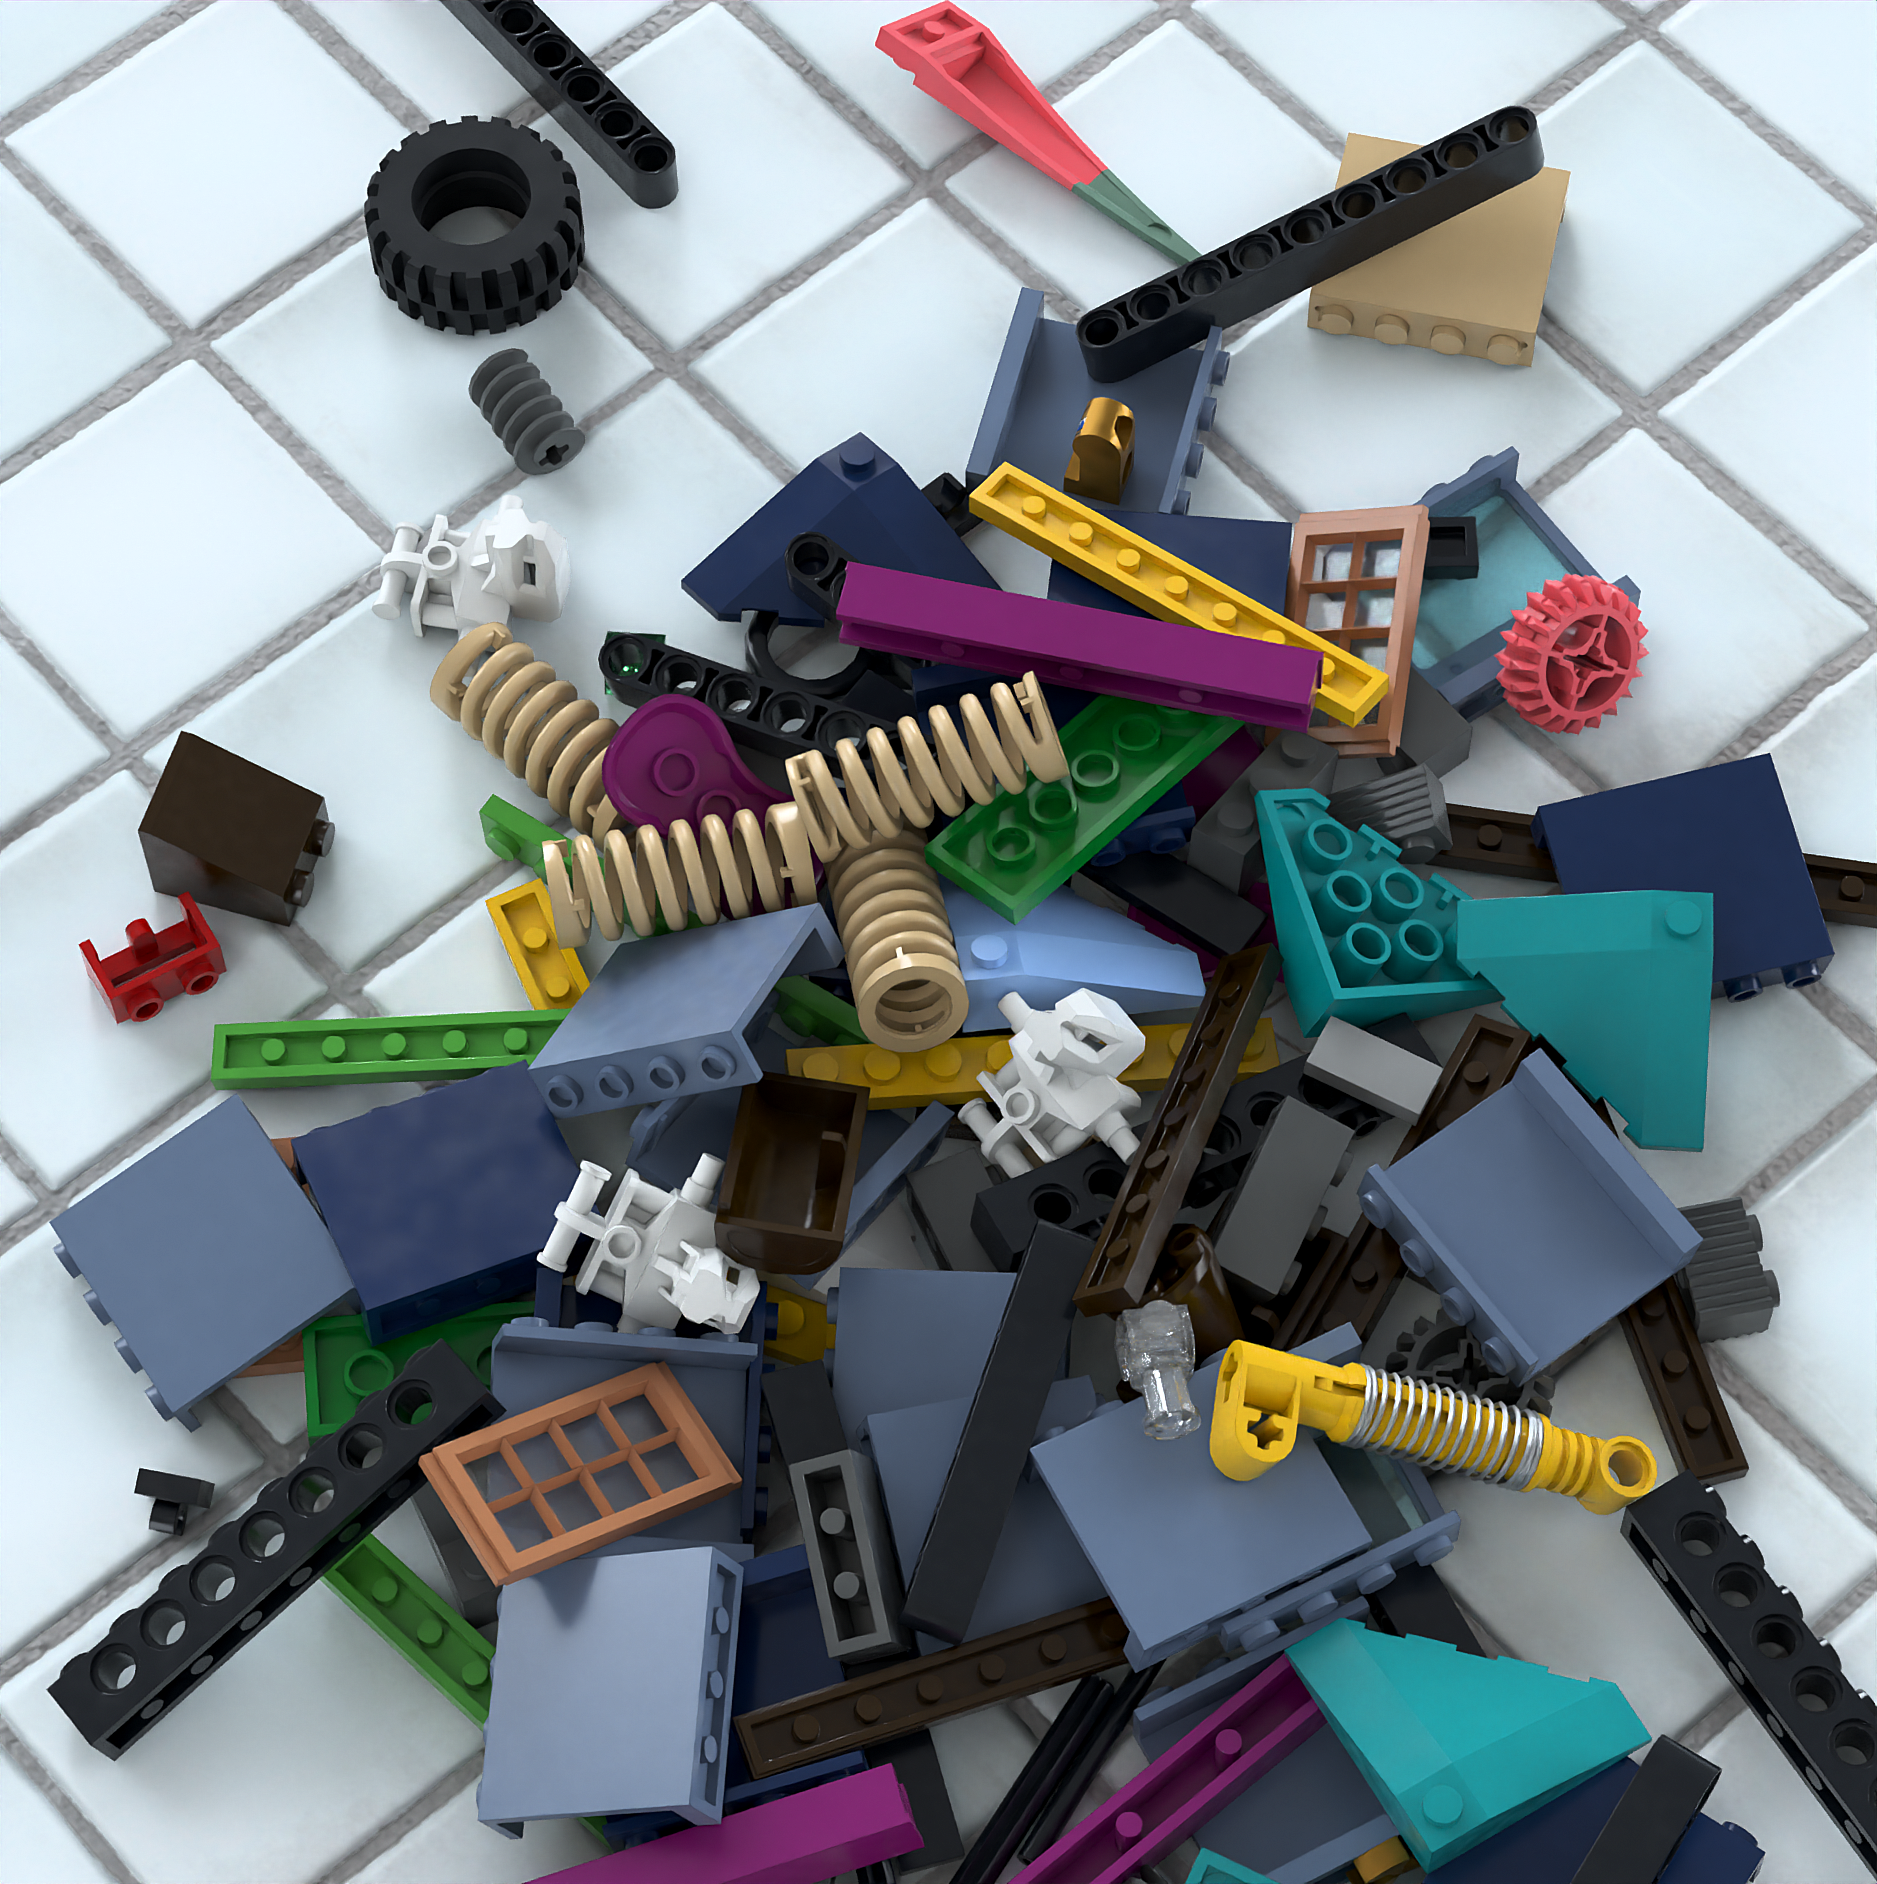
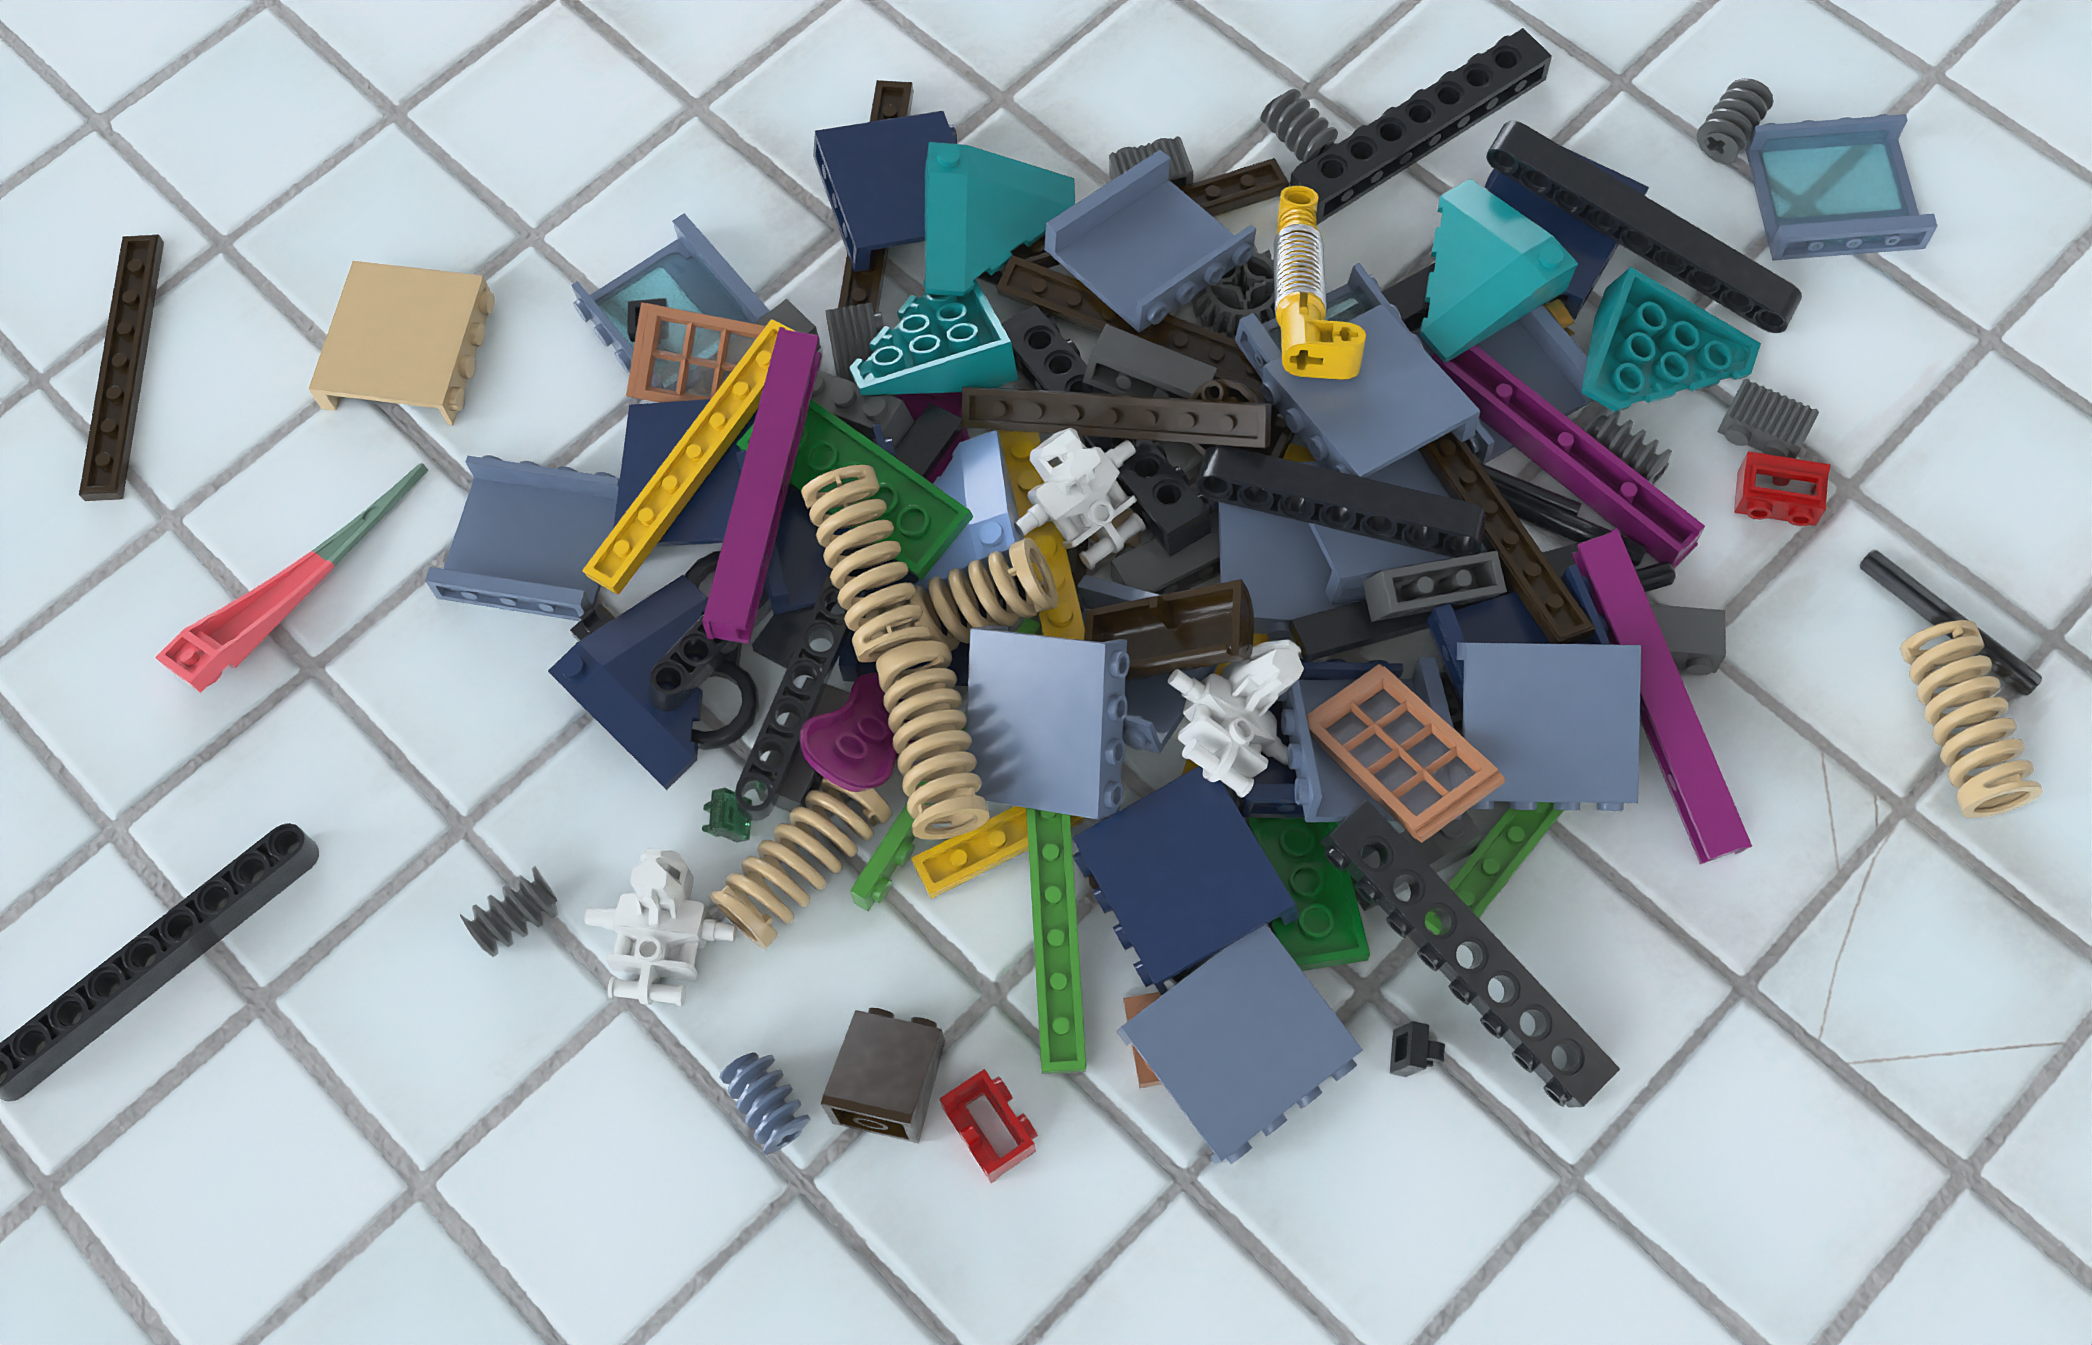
camera: 90 degrees left, 5 degrees up
(228, 700) = (764, 1101): none -> sand blue piece
(468, 168) = (297, 934): black tyre -> none
(1102, 451) = (567, 522): pearl gold leg -> none
(1158, 1359) = (1295, 402): clear connector -> none
(1311, 244) = (418, 411): black beam -> none
(1373, 1070) = (1046, 333): light grey tile -> none
(1571, 653) = (735, 243): coral gear -> none
(1801, 1503) = (1298, 125): none -> dark grey piece

